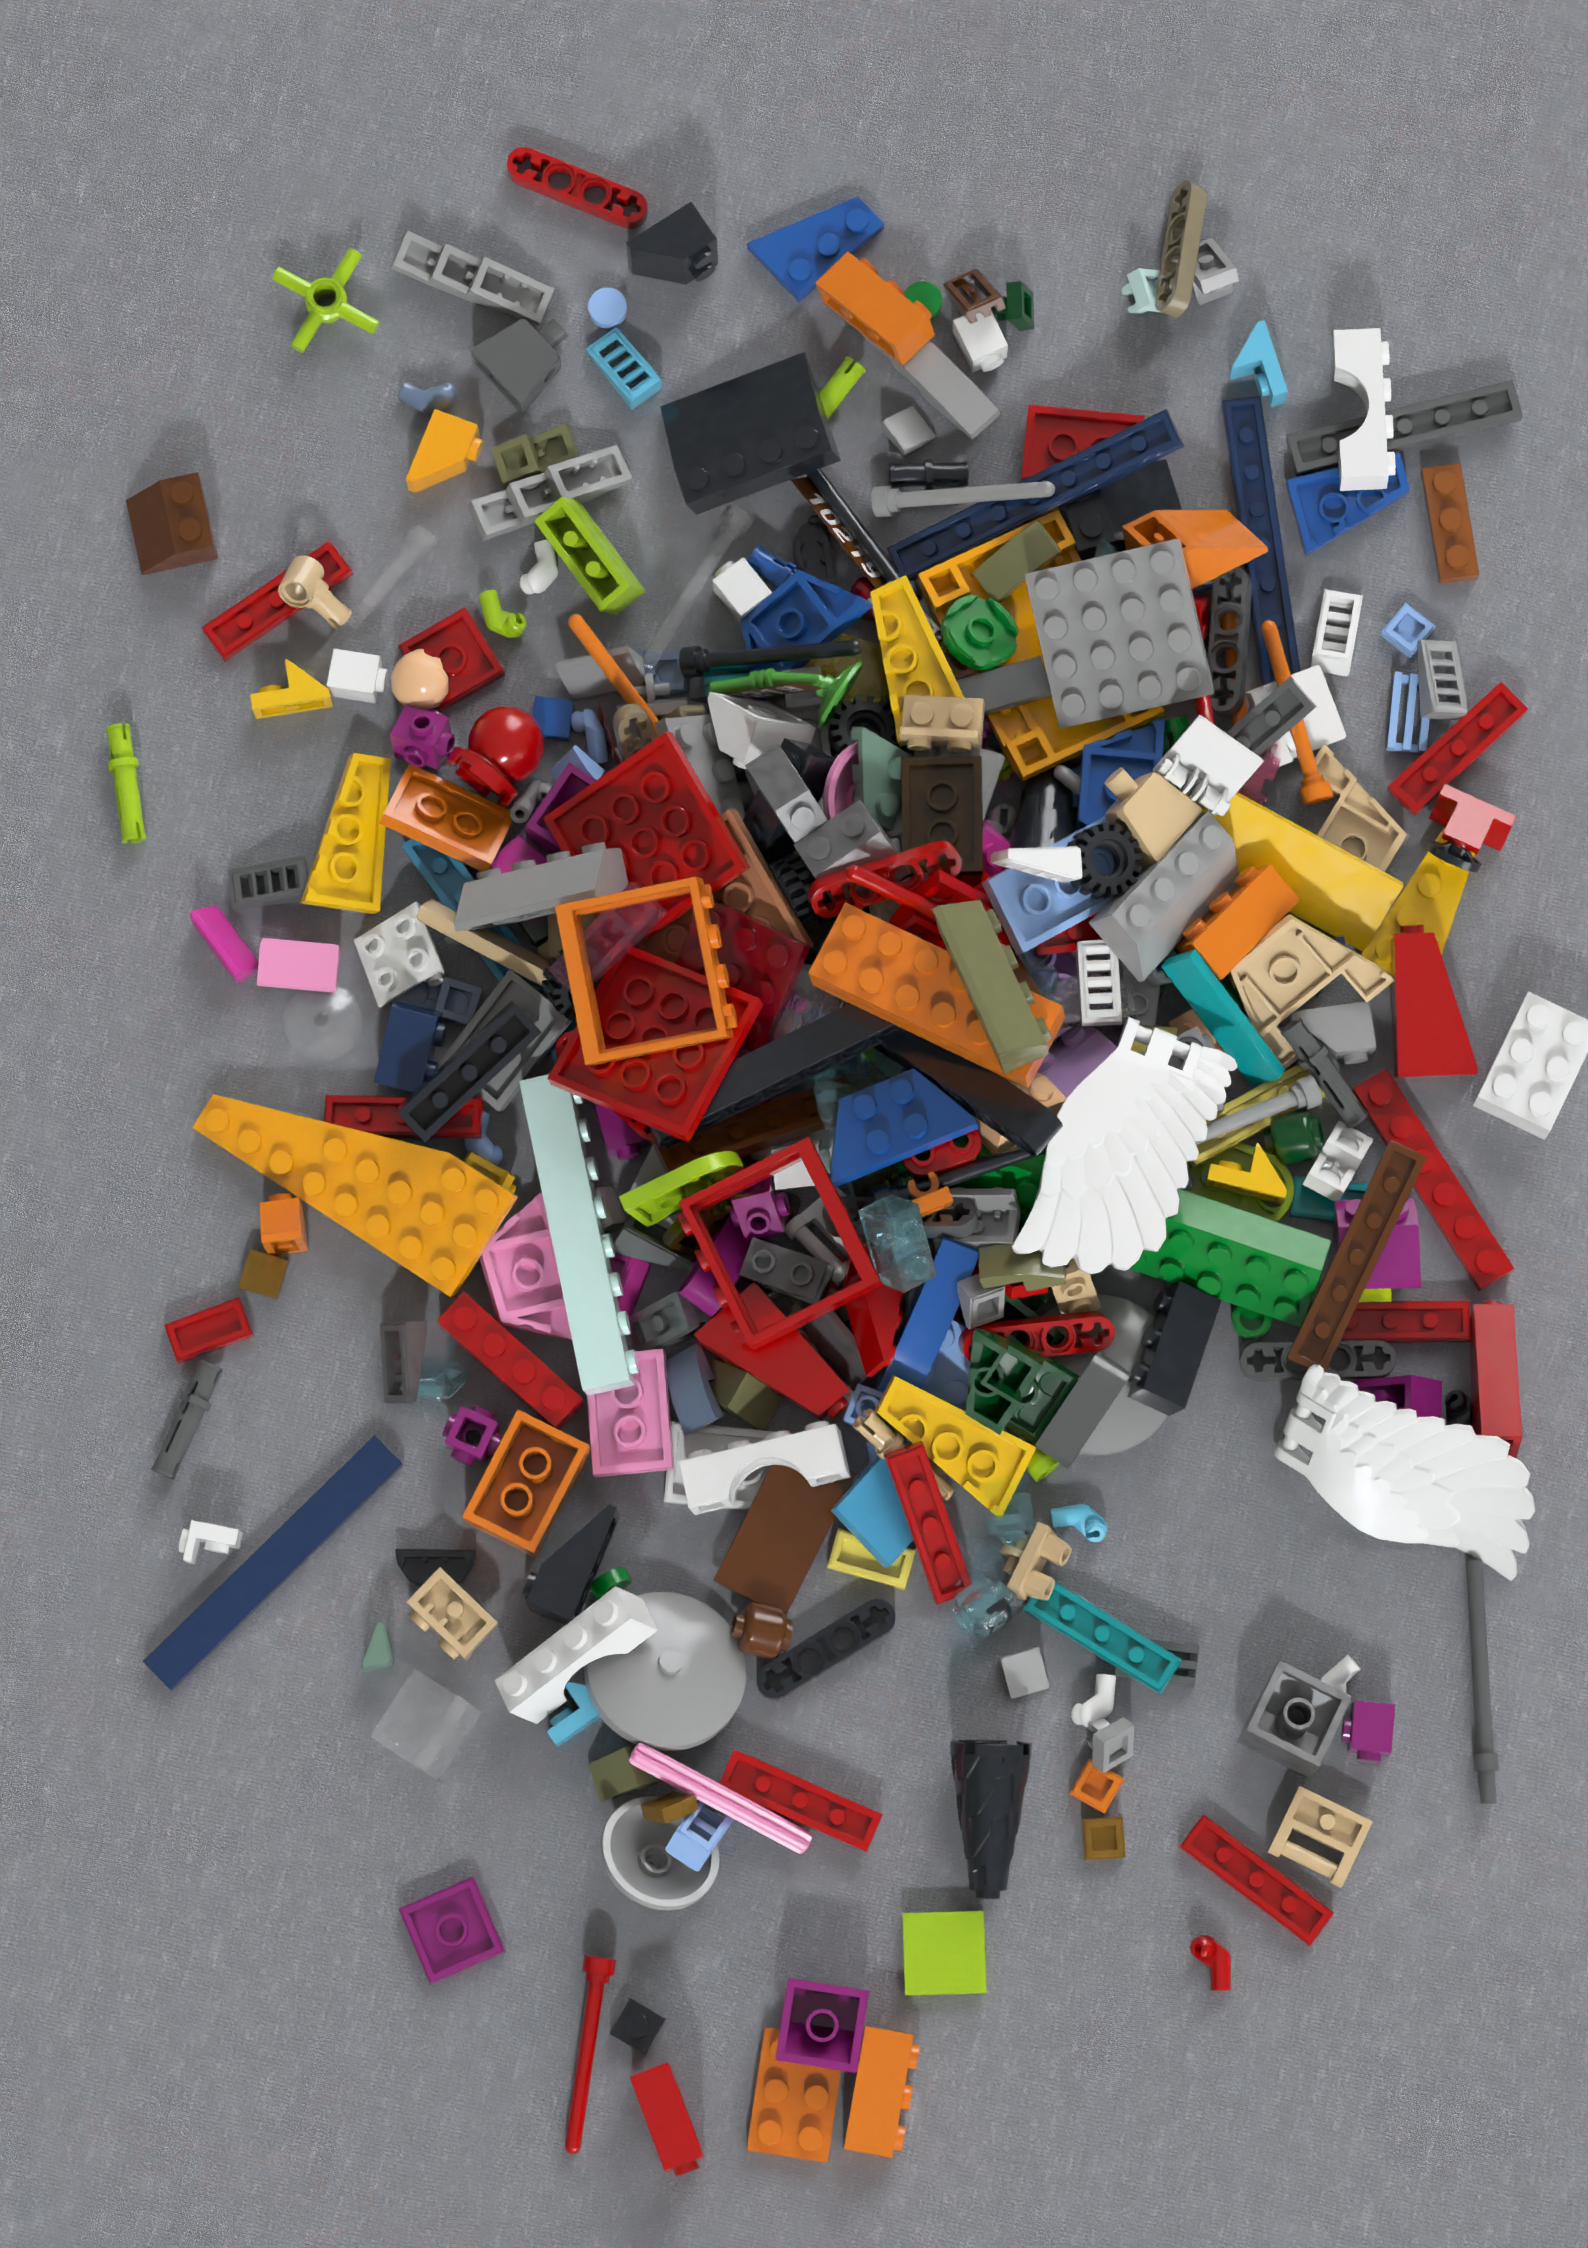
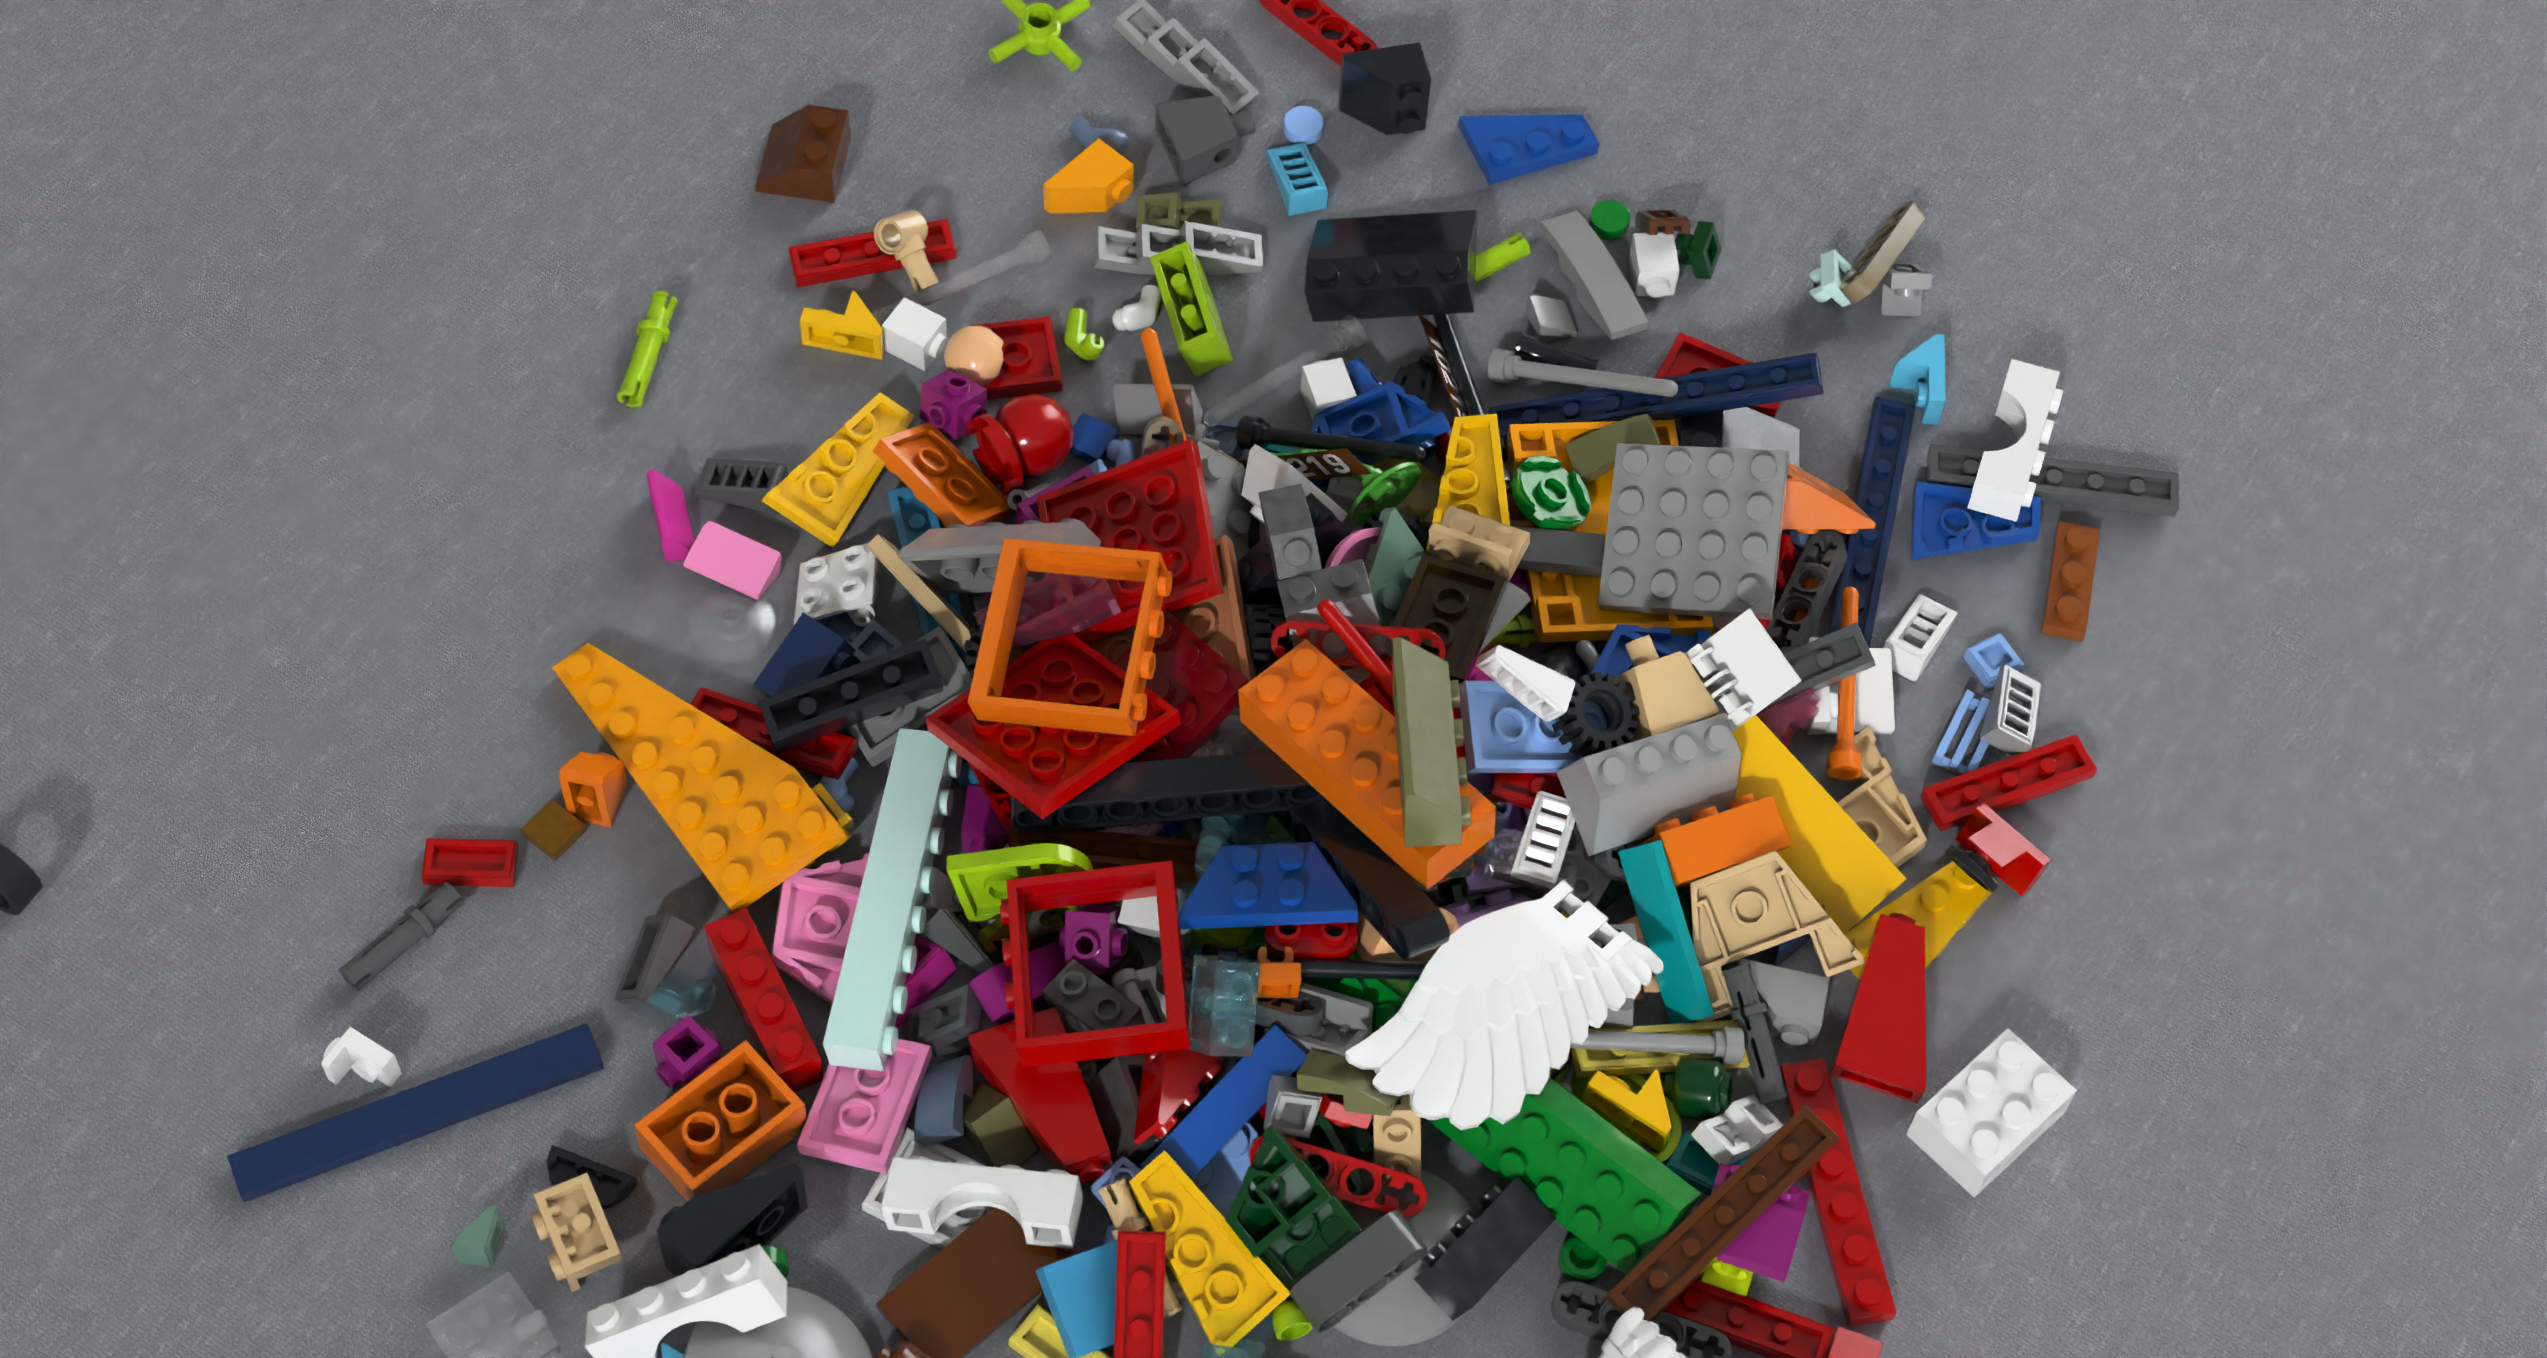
camera: 15 degrees right, 20 degrees down
(876, 307) = (1562, 200): orange brick -> none

